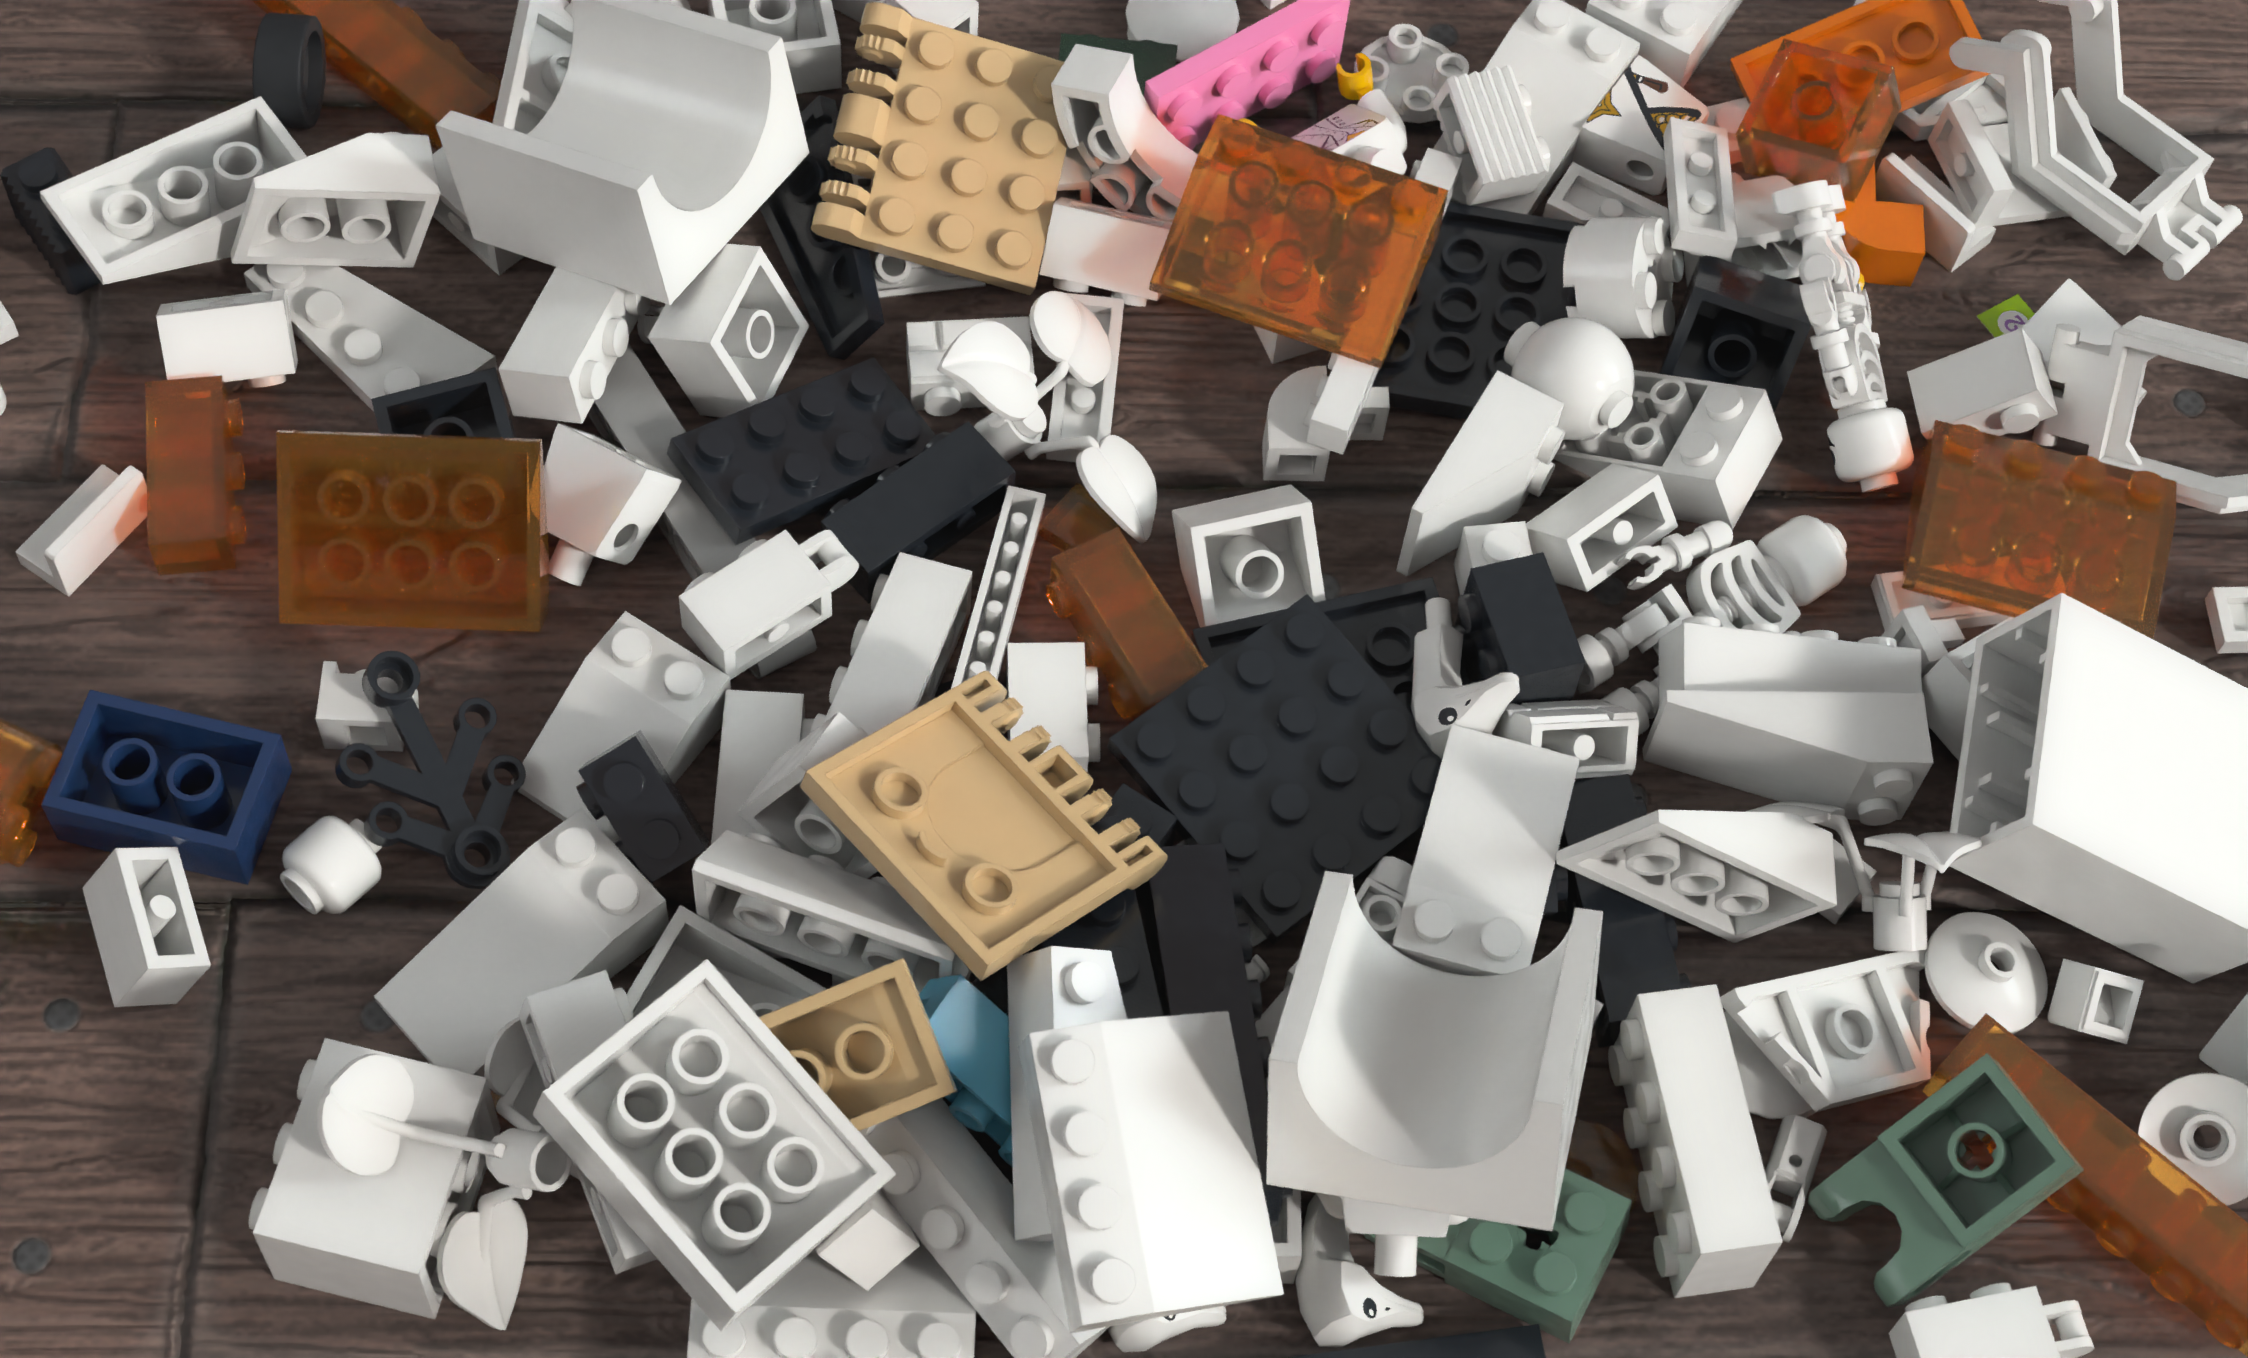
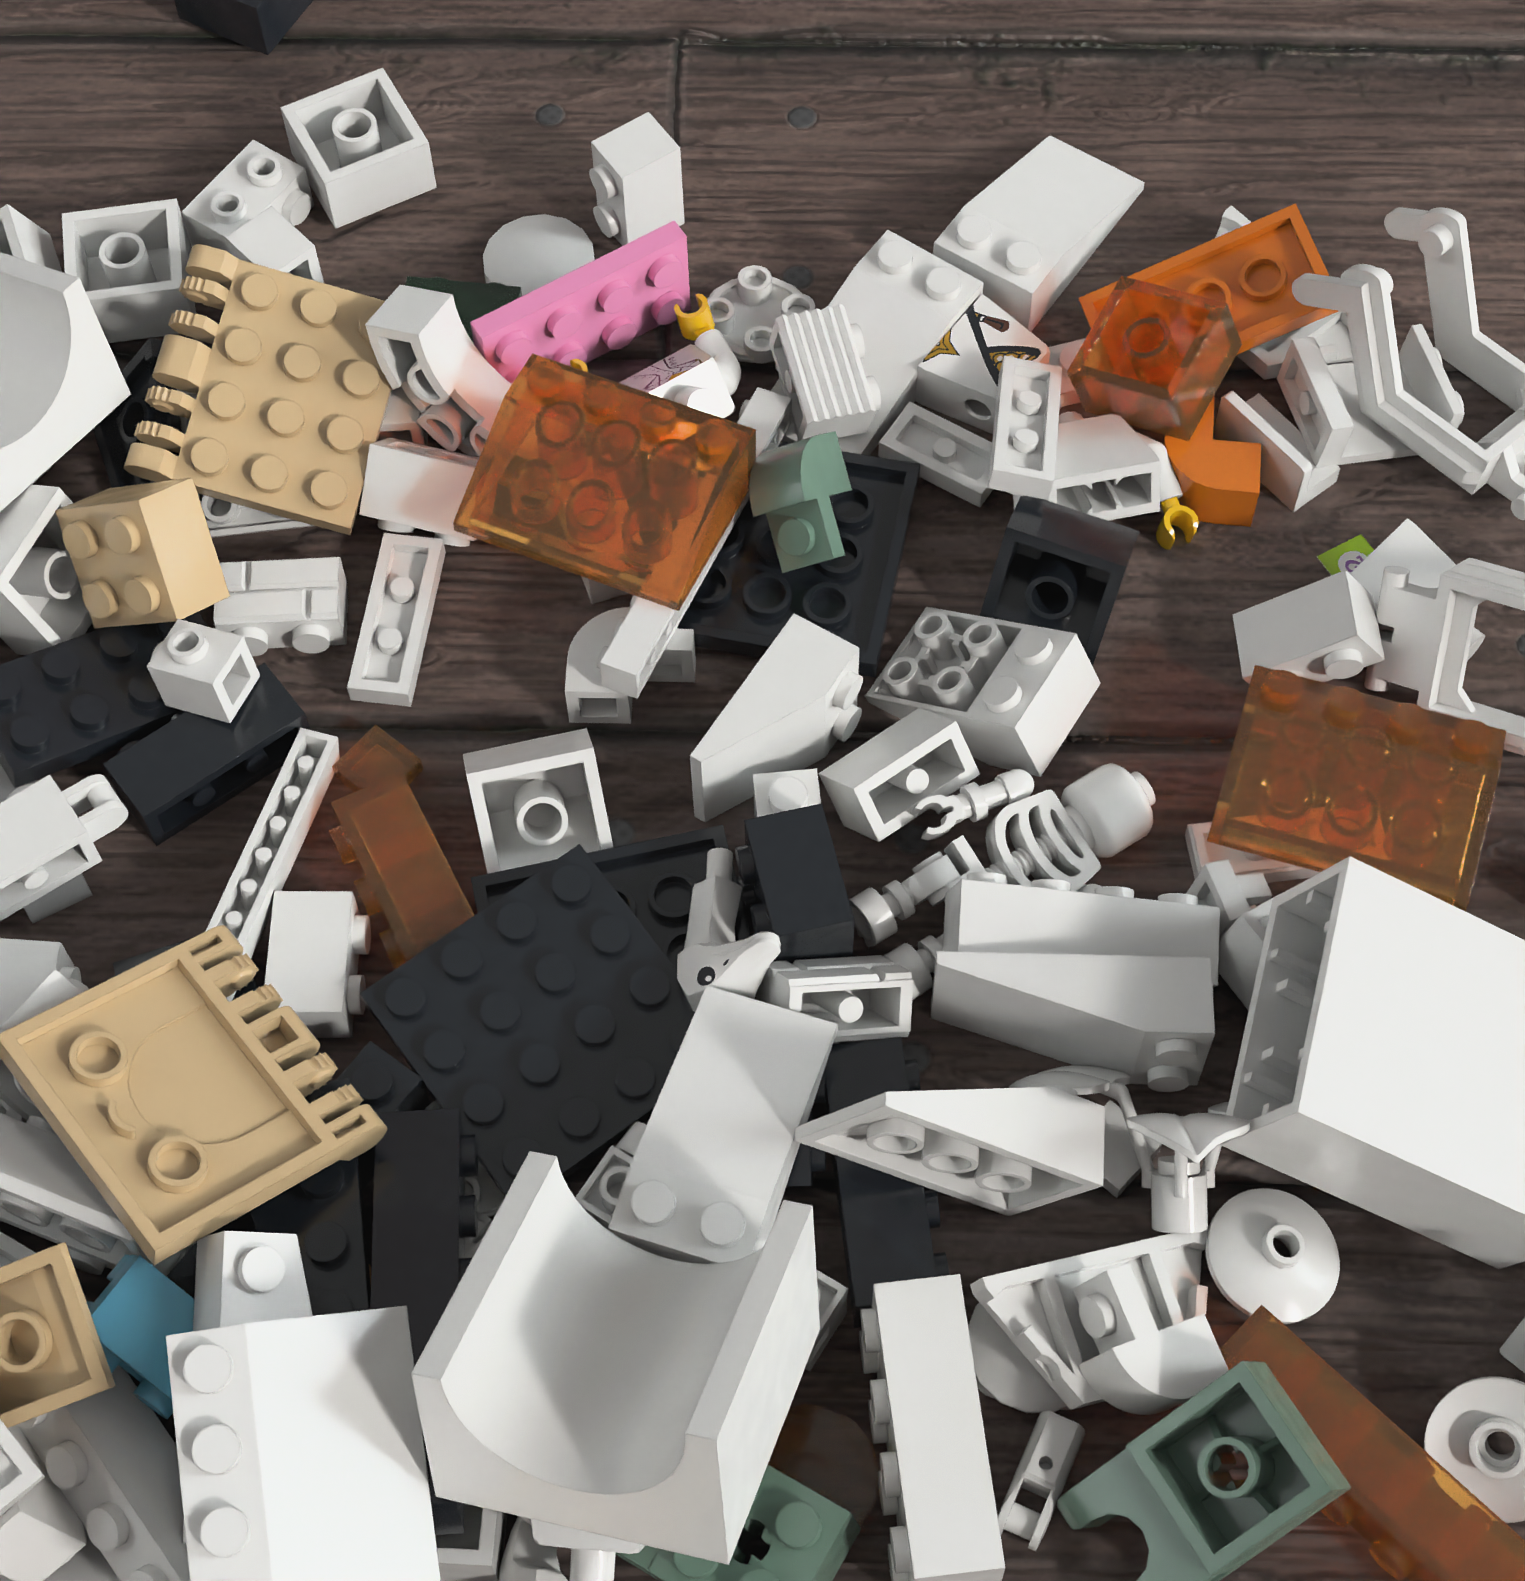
camera: 10 degrees right, 0 degrees up
(843, 313) = (143, 553): none -> tan brick
(903, 645) = (165, 893): white brick -> none
(915, 428) = (203, 670): none -> white brick
(996, 371) = (268, 615): white plant -> none
(1480, 252) = (794, 493): none -> sand green brick
(1579, 366) = (885, 613): white brick -> none
(1623, 275) = (940, 518): white brick -> none
(1868, 438) = (1169, 603): white piece -> none
(1880, 1064) = (1137, 1363): none -> white brick
(2095, 1001) = (1388, 1289): white slope -> none

